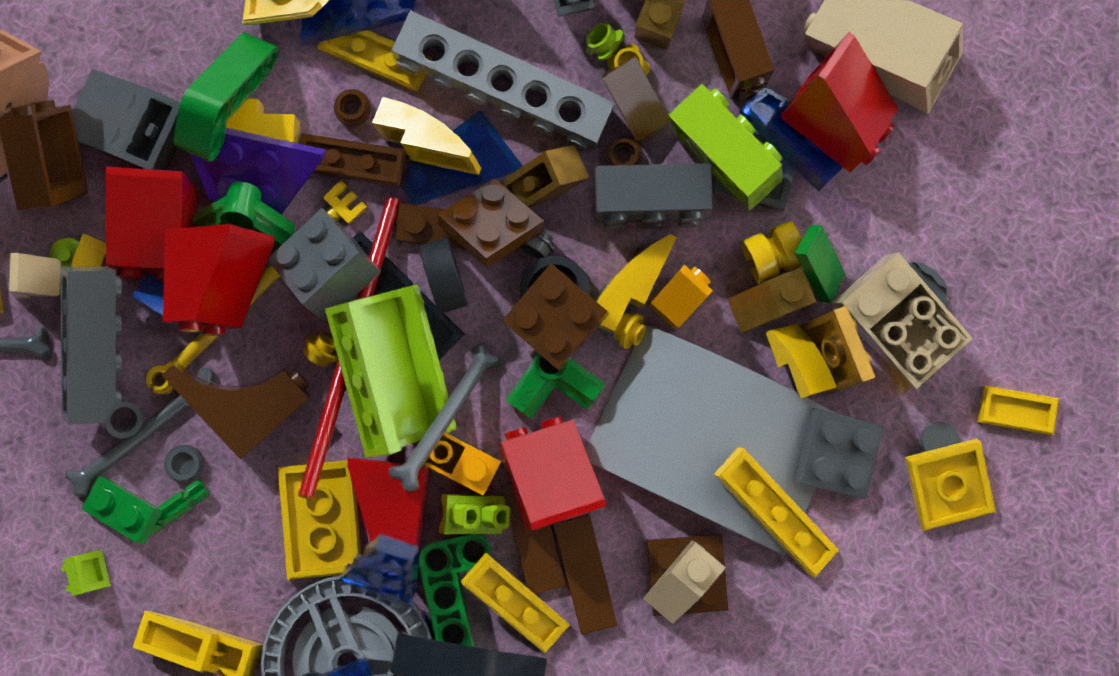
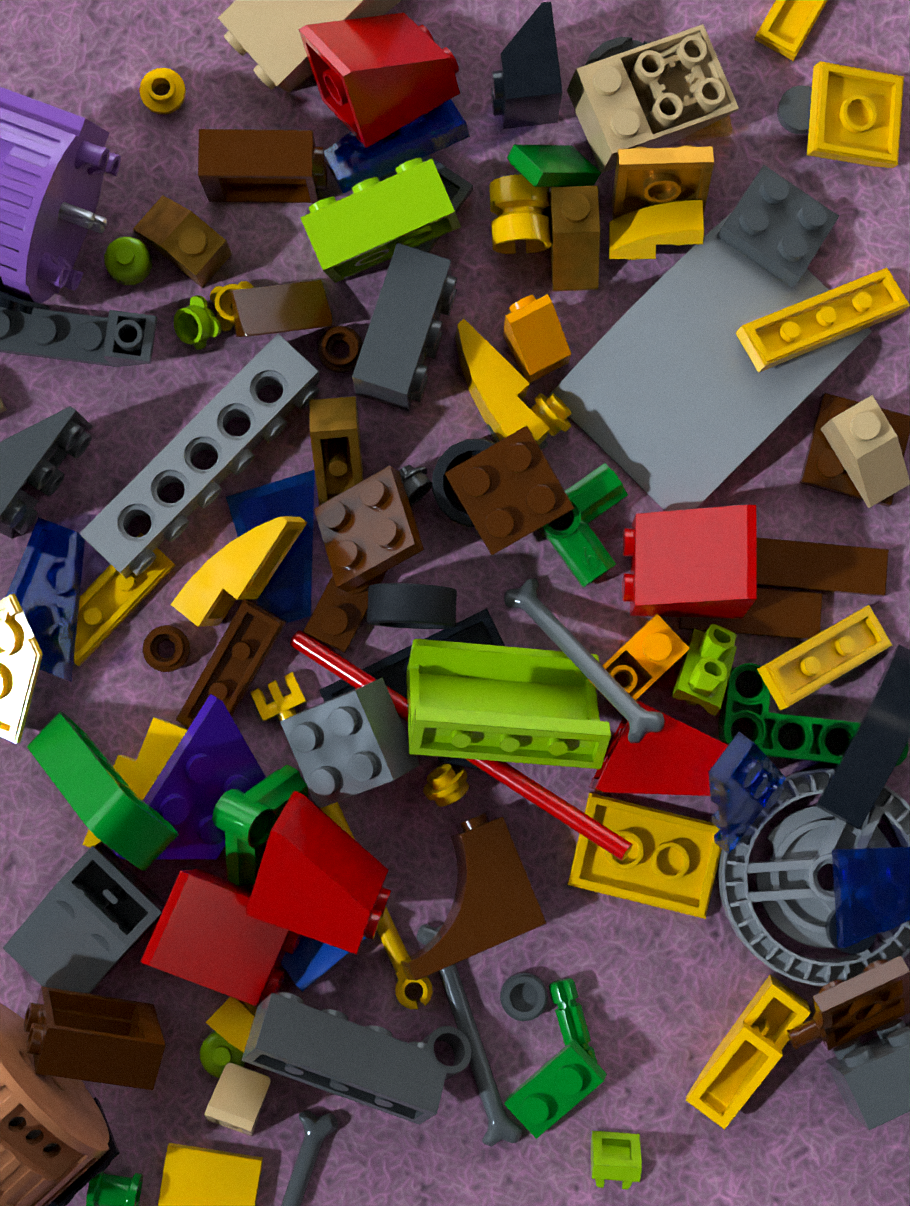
camera: 75 degrees left, 0 degrees up
(883, 218) = (529, 78): none -> black slope

